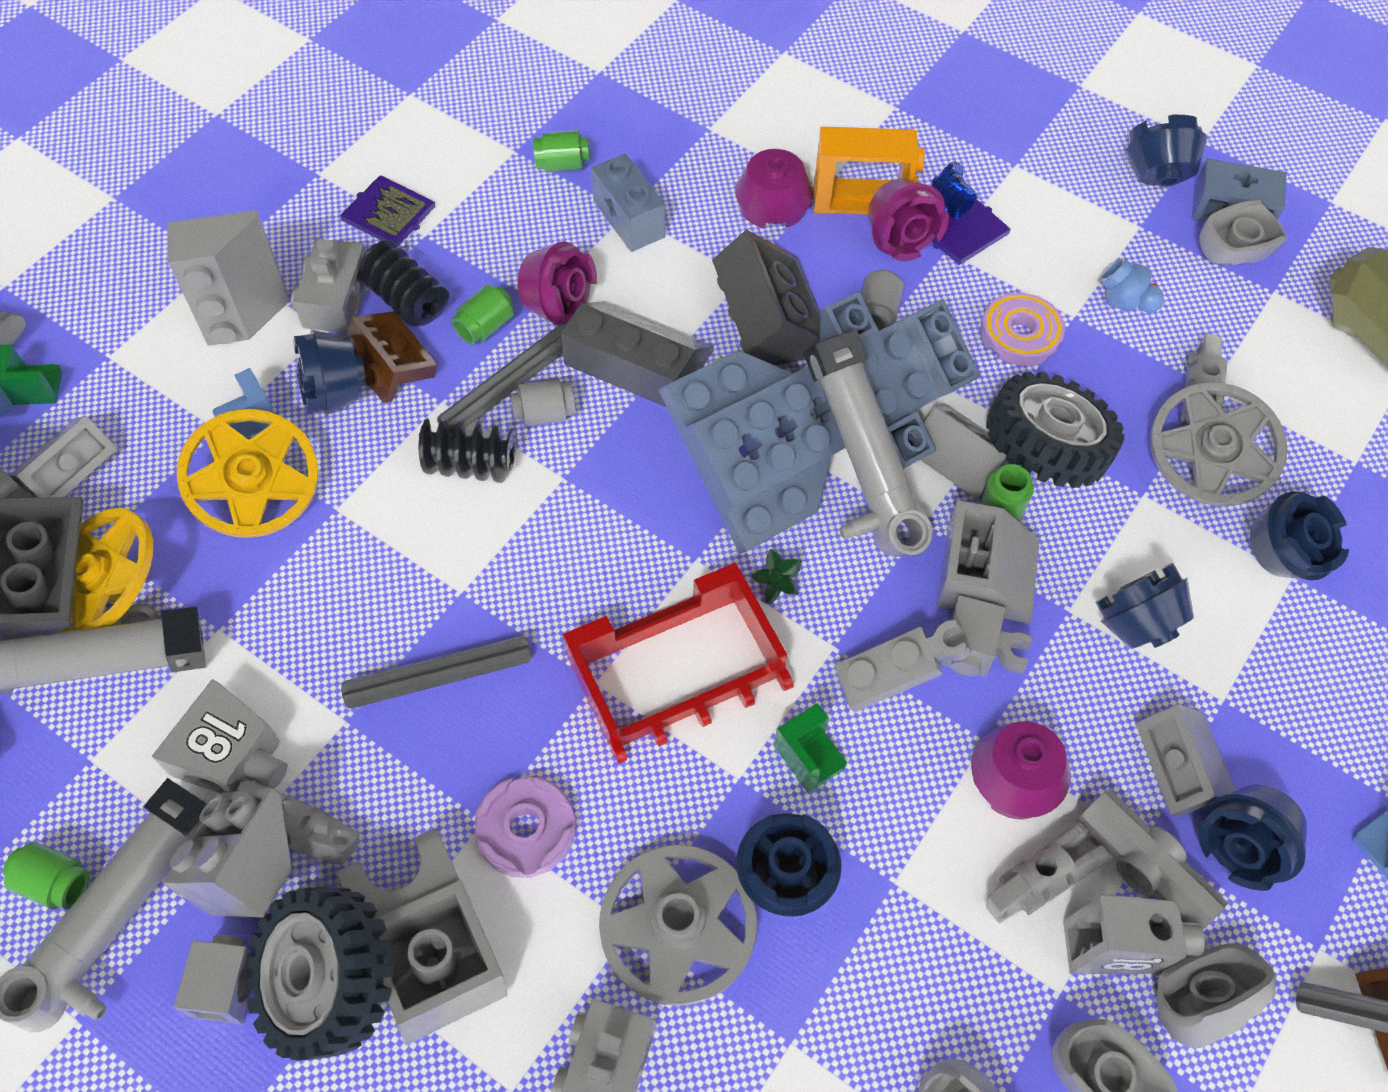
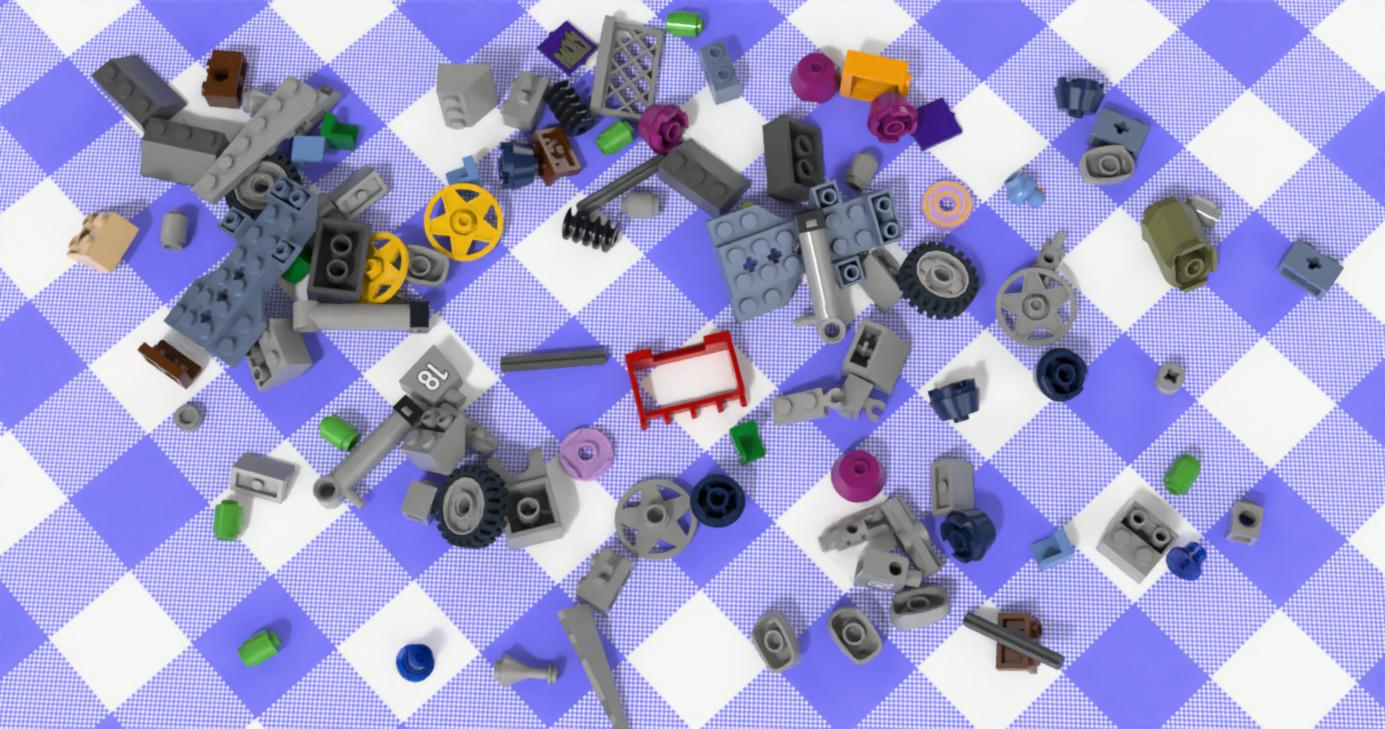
camera: 15 degrees right, 10 degrees up
(185, 554) = (425, 267): none -> light grey piece
(450, 214) = (605, 62): none -> light grey fence
(778, 576) = (754, 340): dark green plant -> none
(957, 194) = (928, 102): clear blue piece -> none
(1009, 489) = (897, 317): bright green brick -> none

